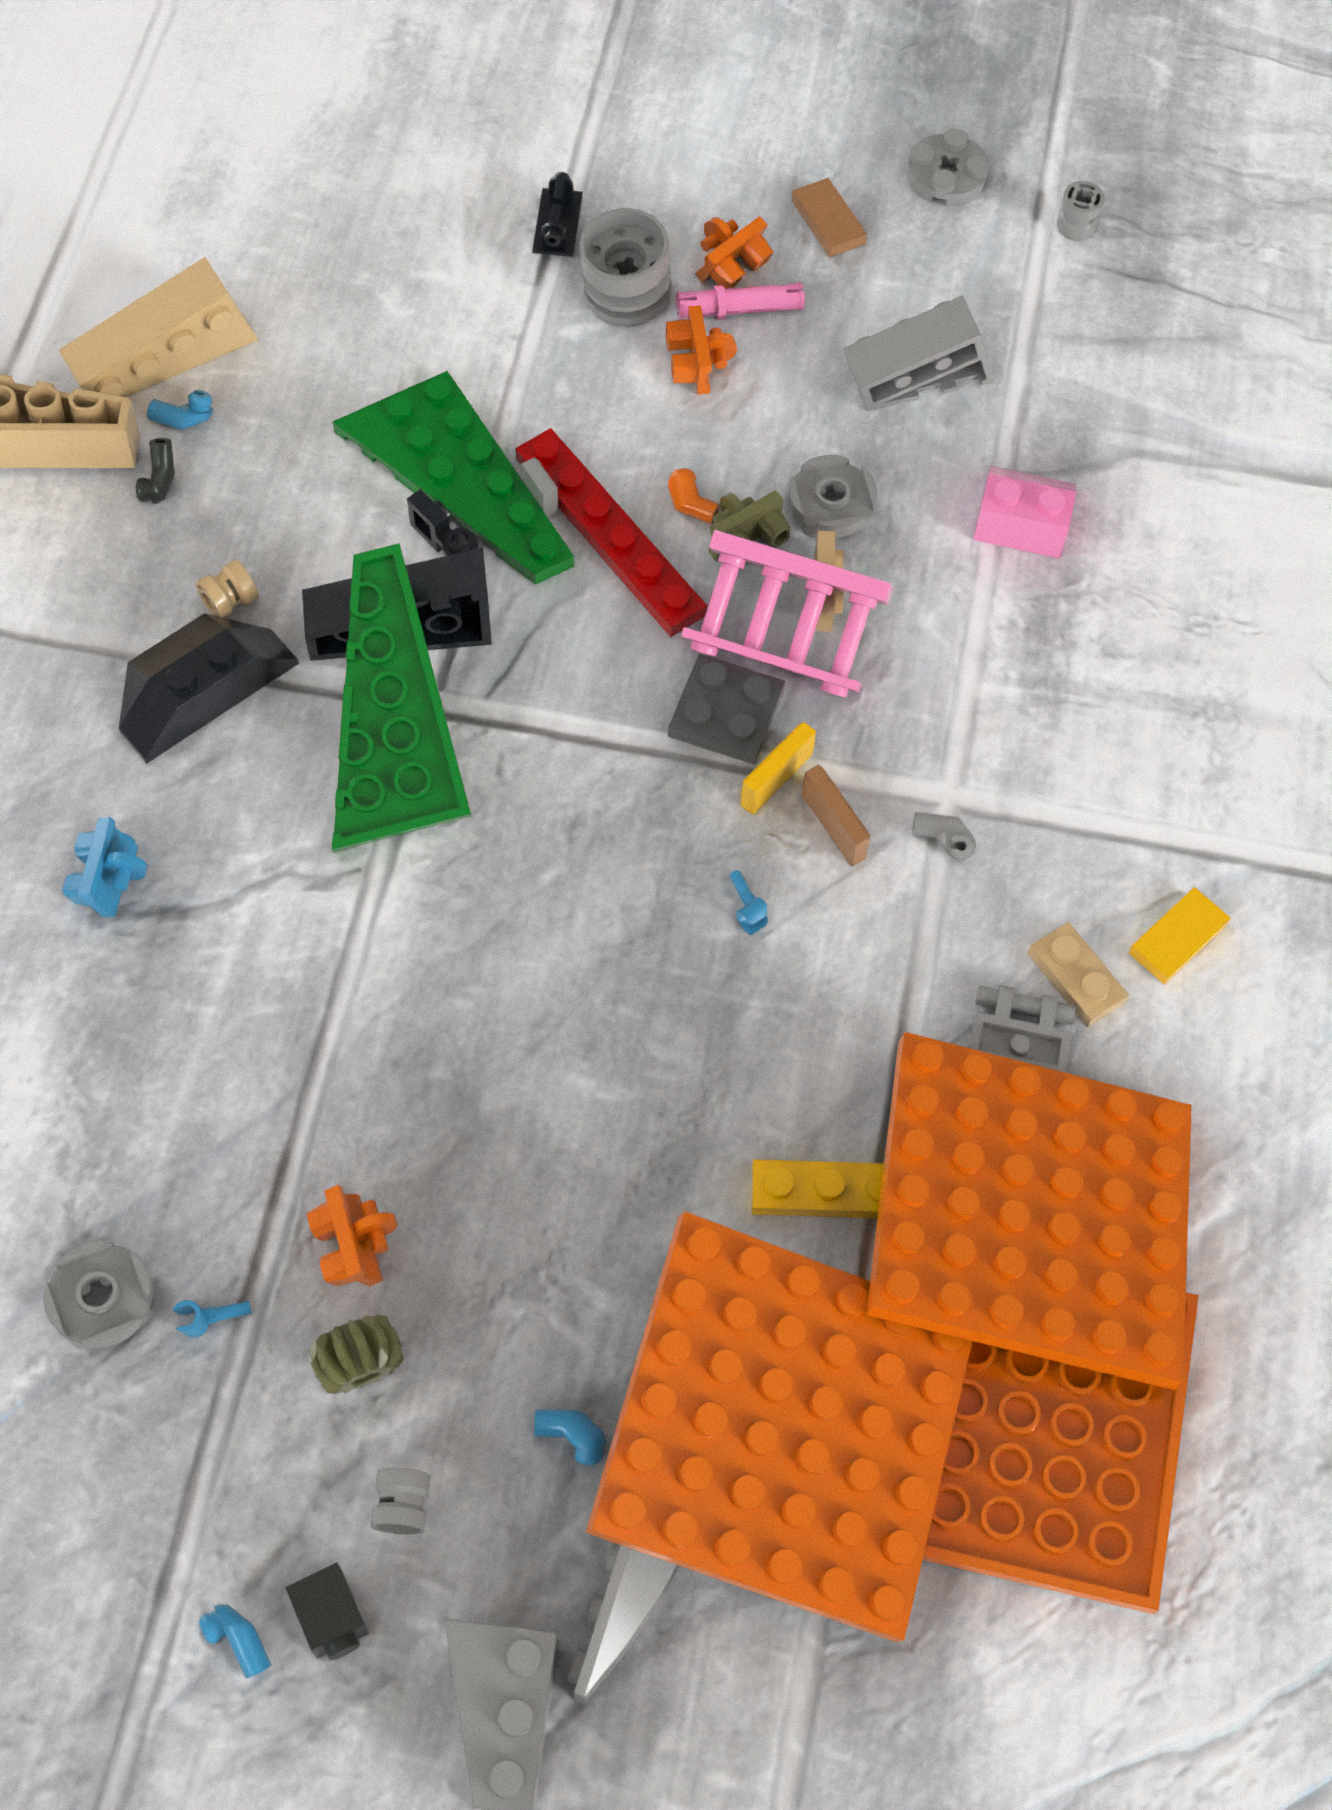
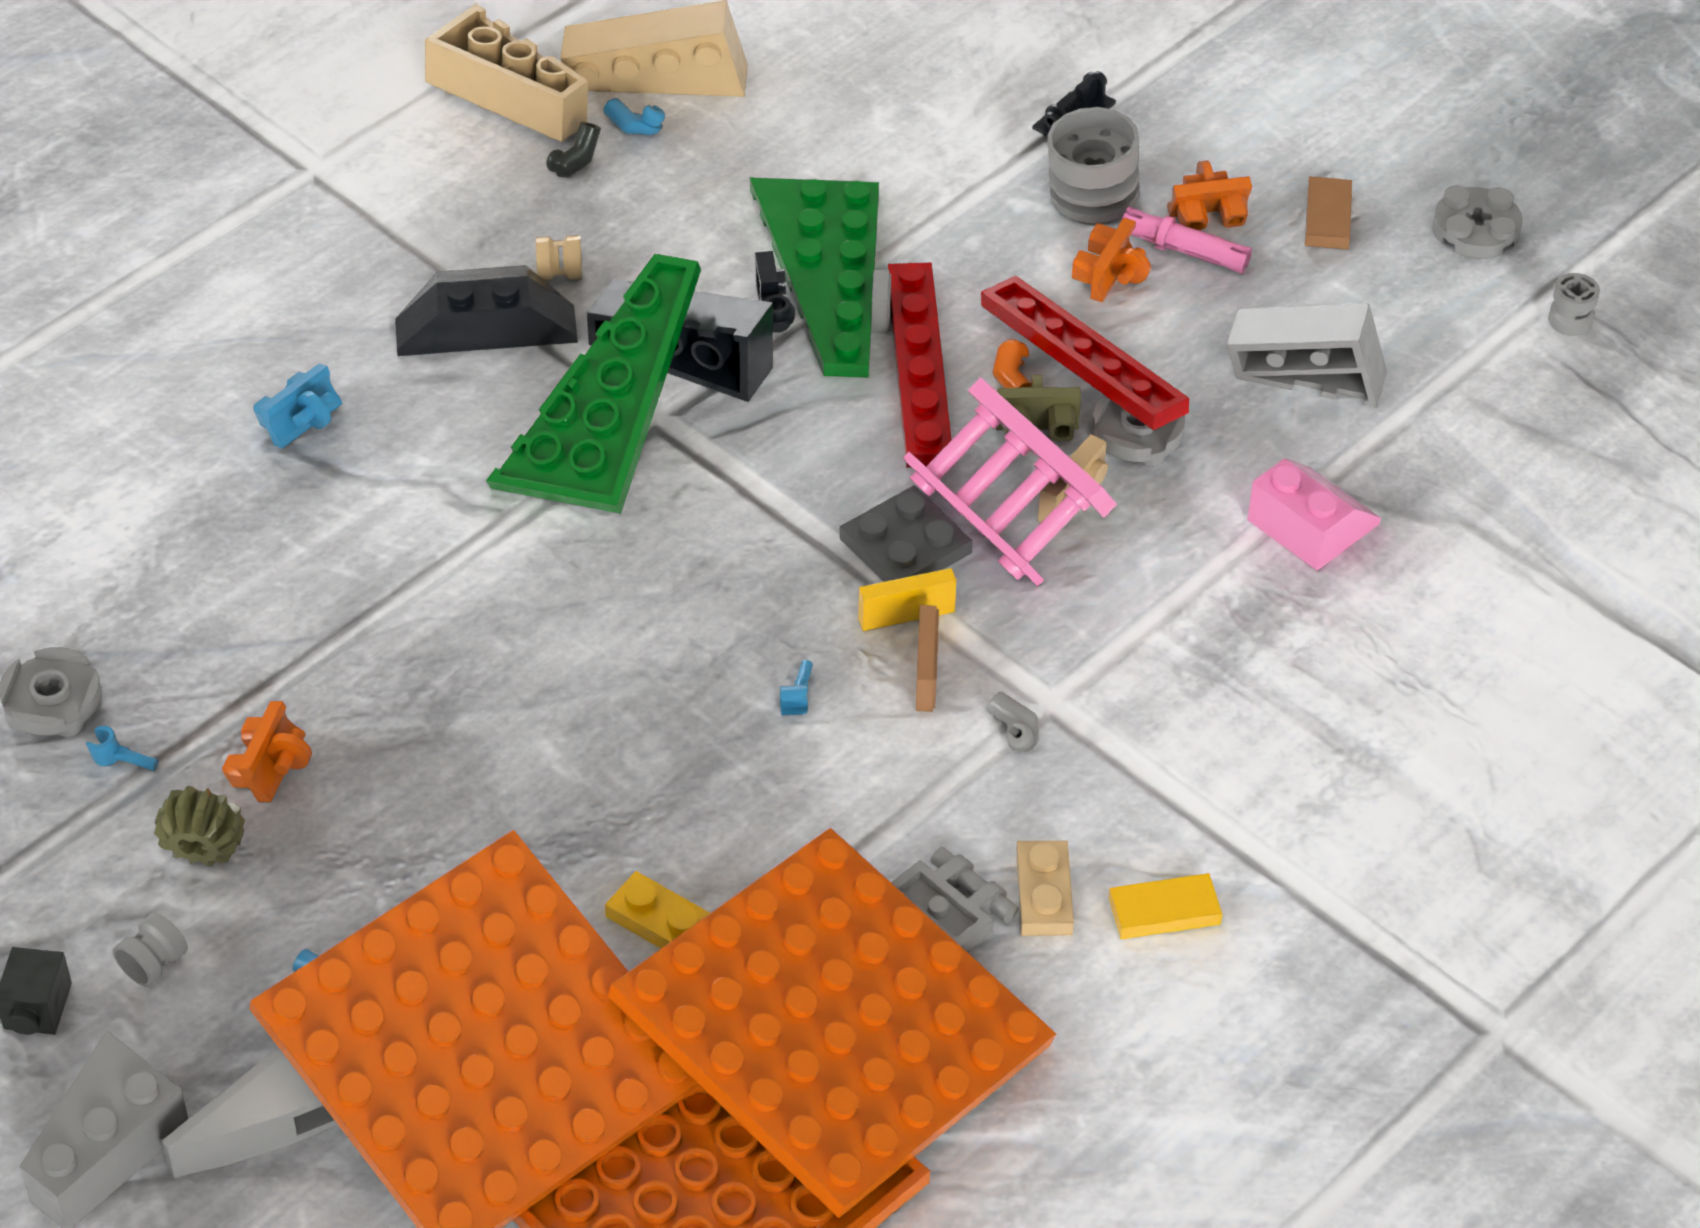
camera: 35 degrees right, 15 degrees down
(750, 453) = (1085, 352): none -> red plate

